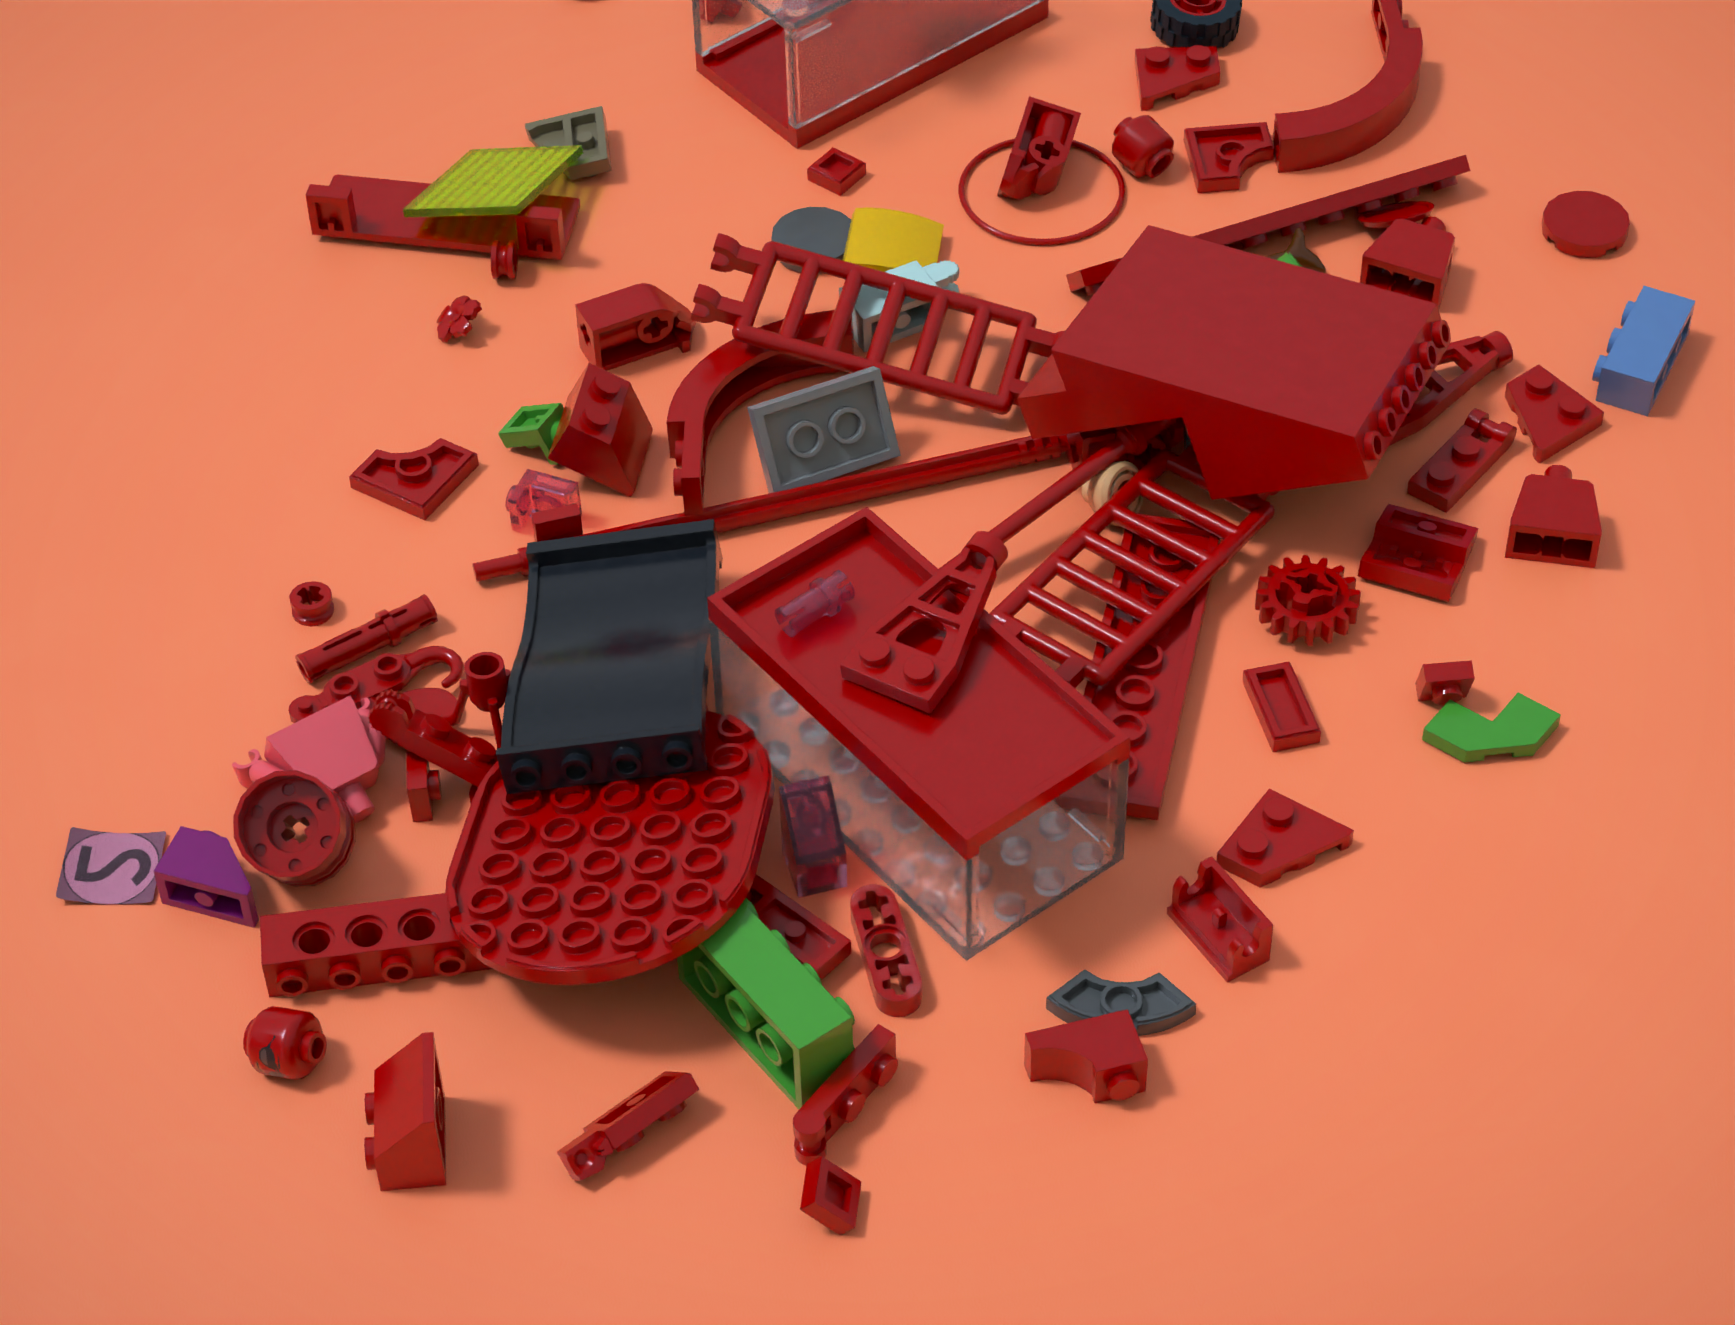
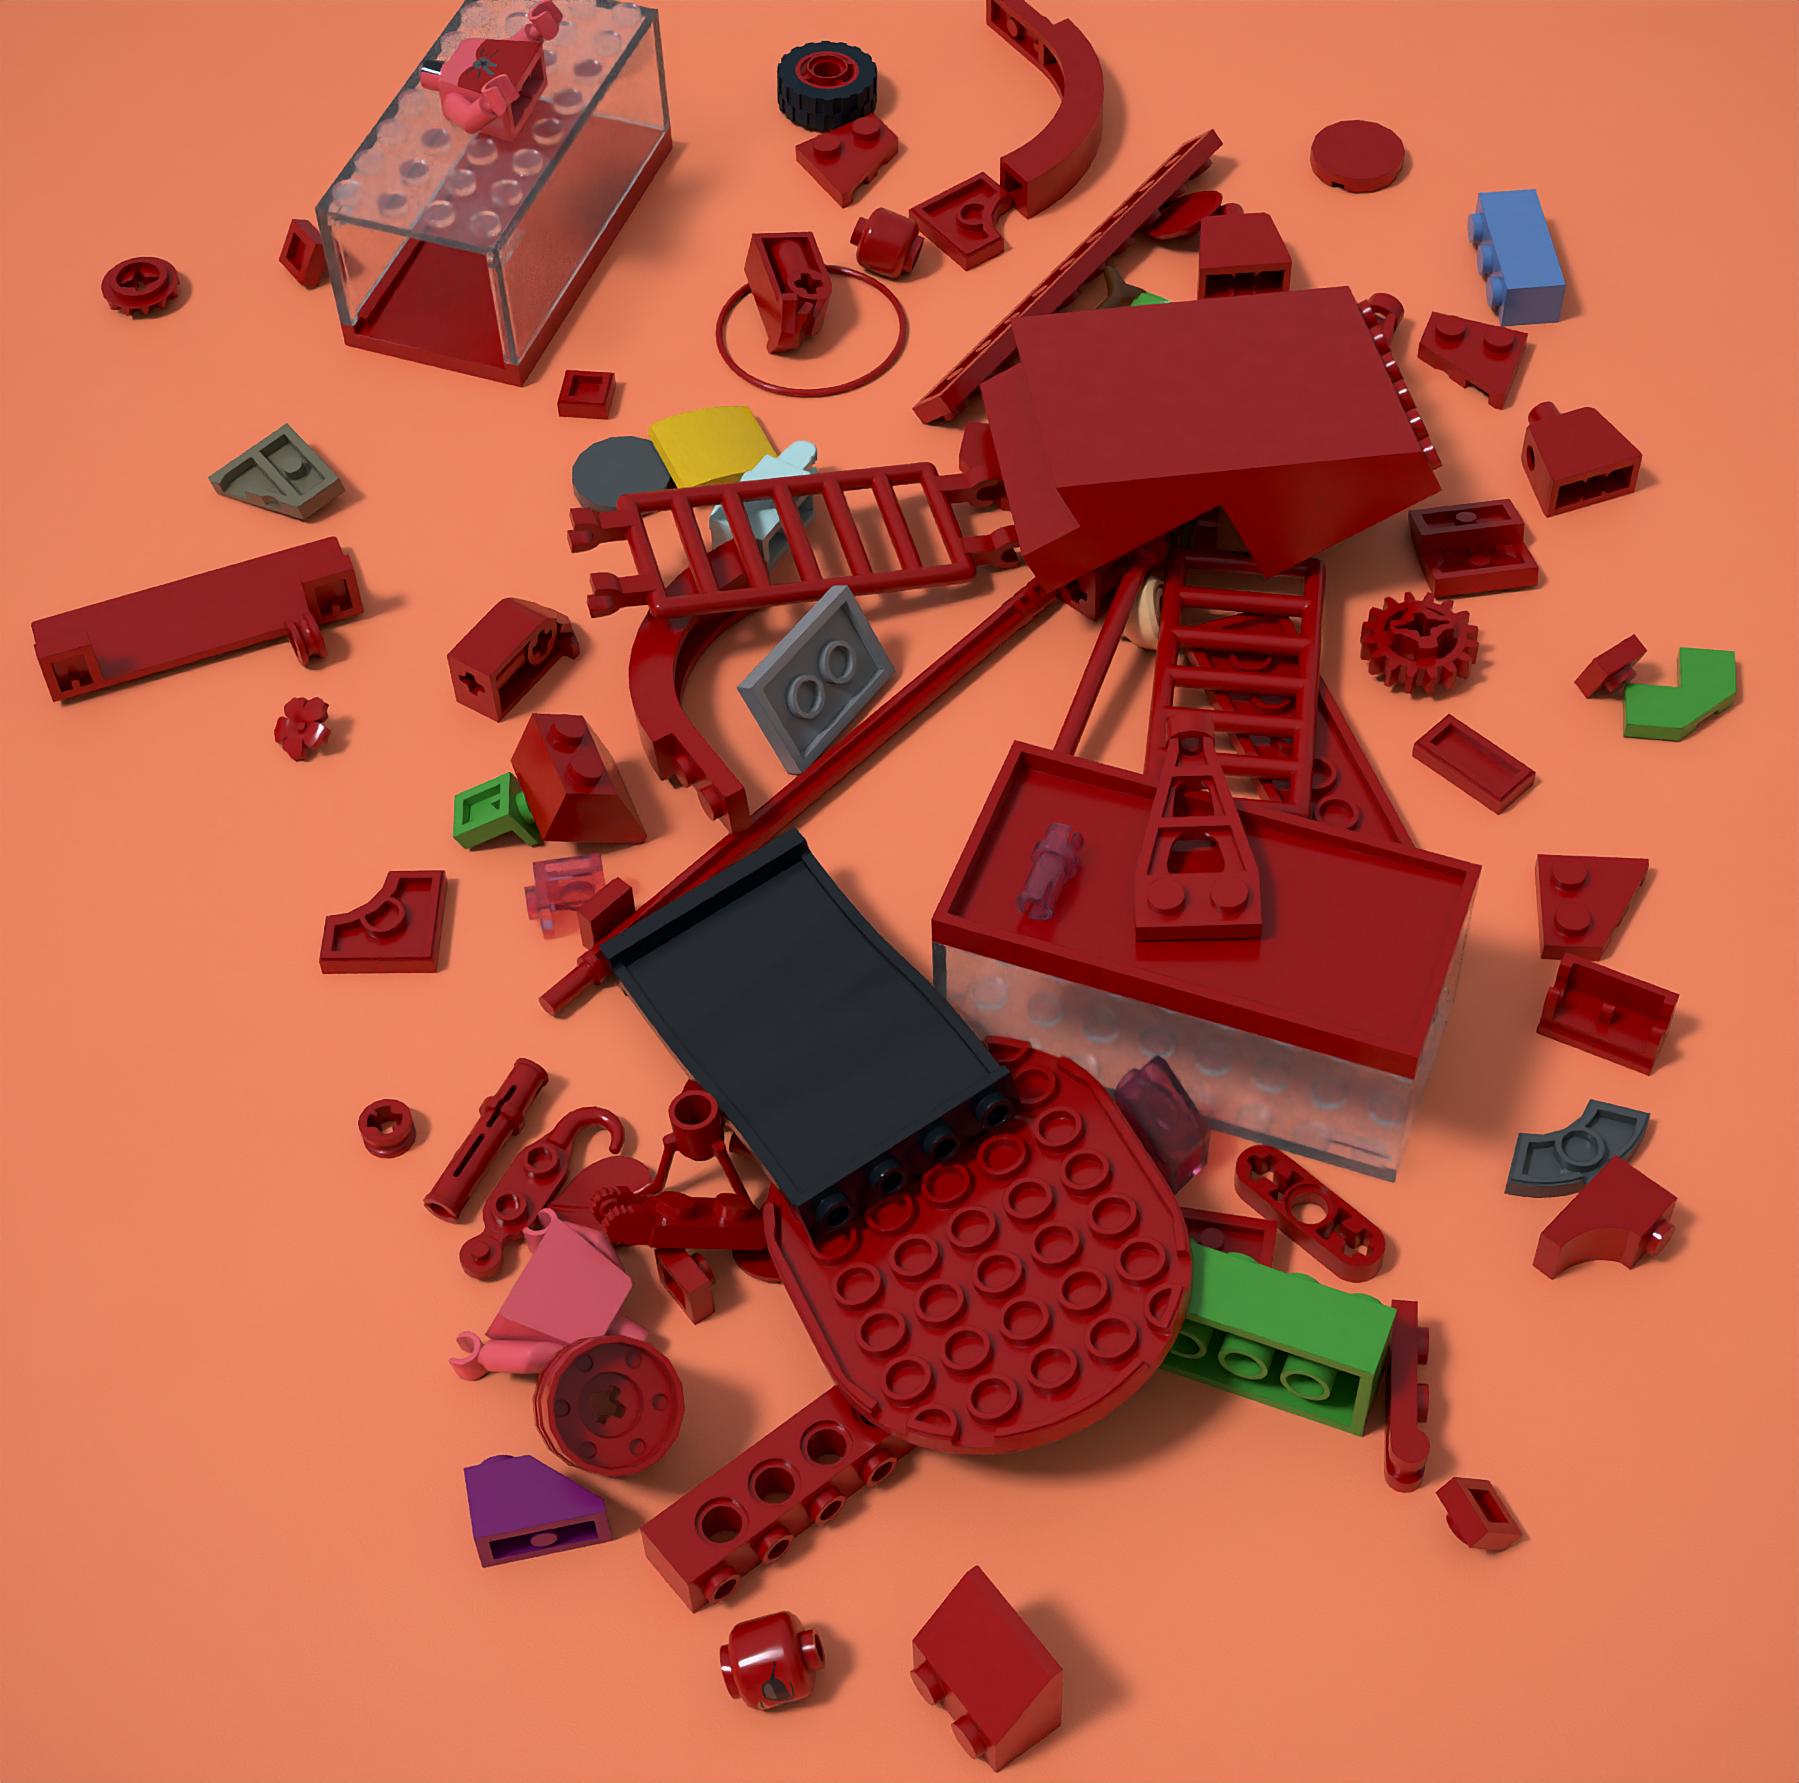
camera: 30 degrees left, 5 degrees up
(110, 867) = (391, 1555): clear pink sticker -> none
(493, 181) = (235, 556): clear neon green piece -> none
(625, 1122) = (1209, 1545): red hinge -> none
(1461, 461) = (1444, 428): red plate -> none

